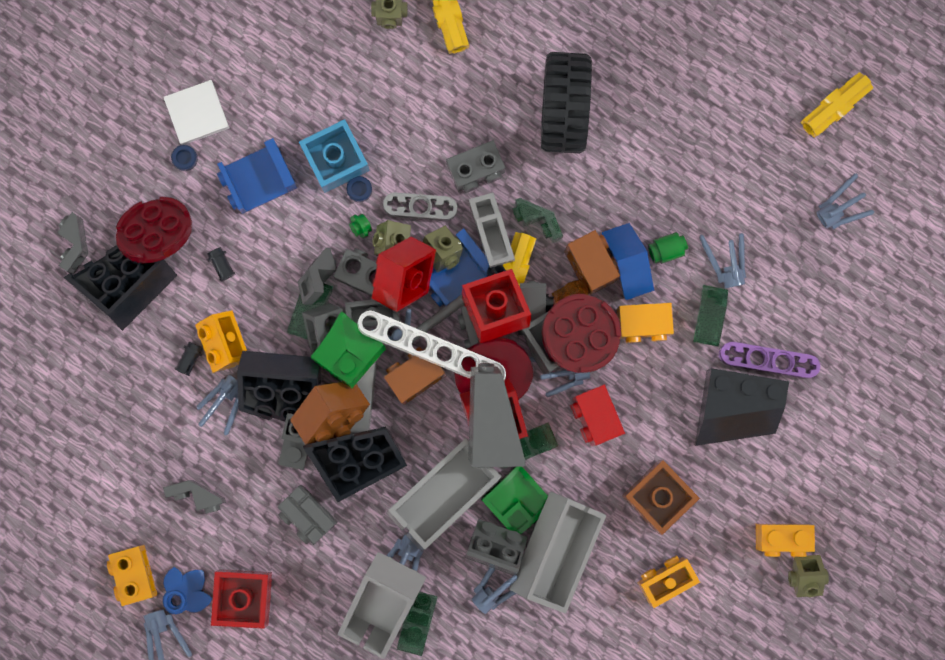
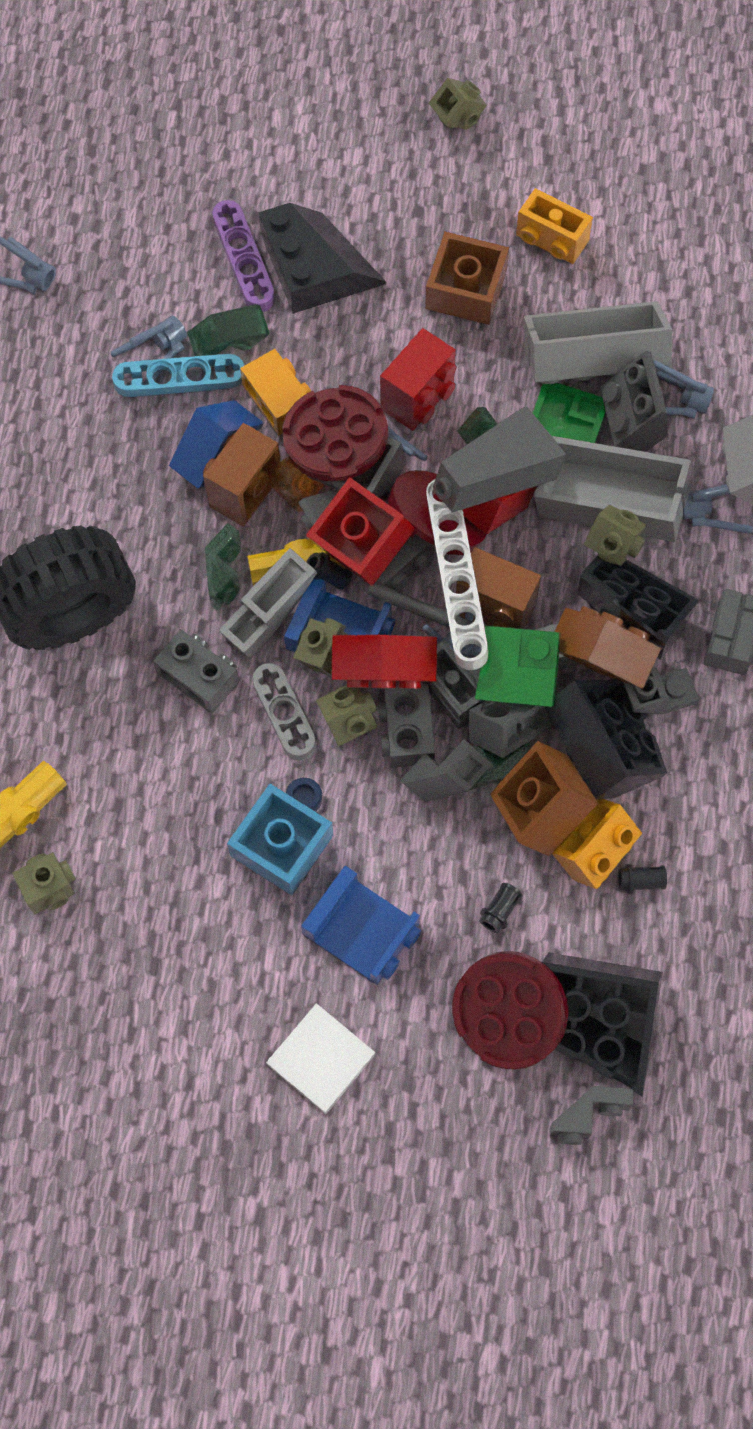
camera: 115 degrees left, 15 degrees down
(184, 157) = (390, 1038): dark blue tile -> none
(227, 388) = (647, 804): sand blue plant -> none
(261, 321) = (543, 798): none -> dark orange brick
(360, 226) = (350, 765): green plate -> none
(402, 469) = (616, 535): none -> olive brick
(667, 248) = (172, 412): green brick -> none
(697, 266) = (178, 368): none -> medium azure beam
(785, 538) = (431, 145): light orange brick -> none

